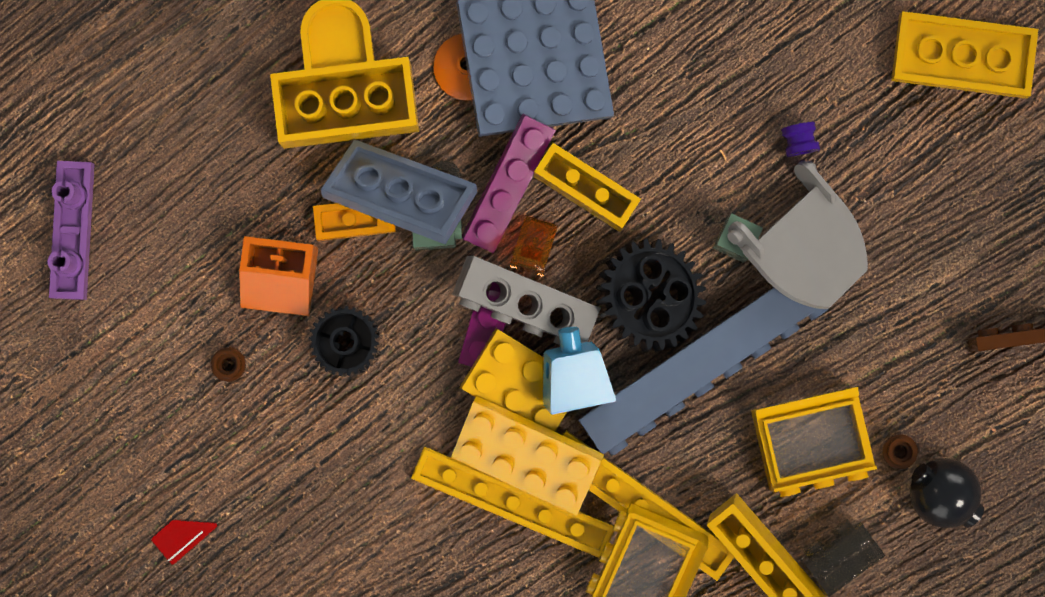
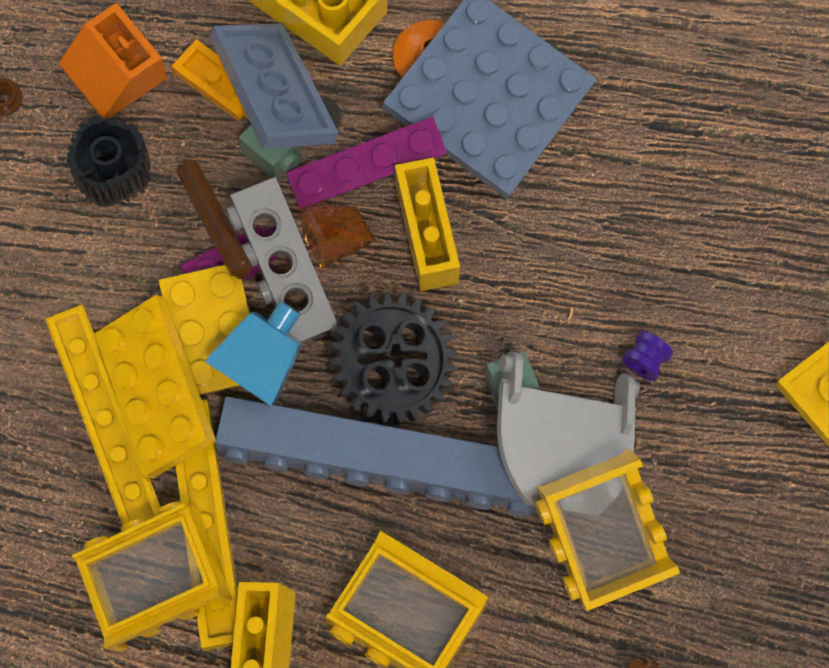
camera: 40 degrees right, 15 degrees down
(452, 315) = (214, 219): none -> reddish brown axle
(888, 279) = (605, 531): none -> window

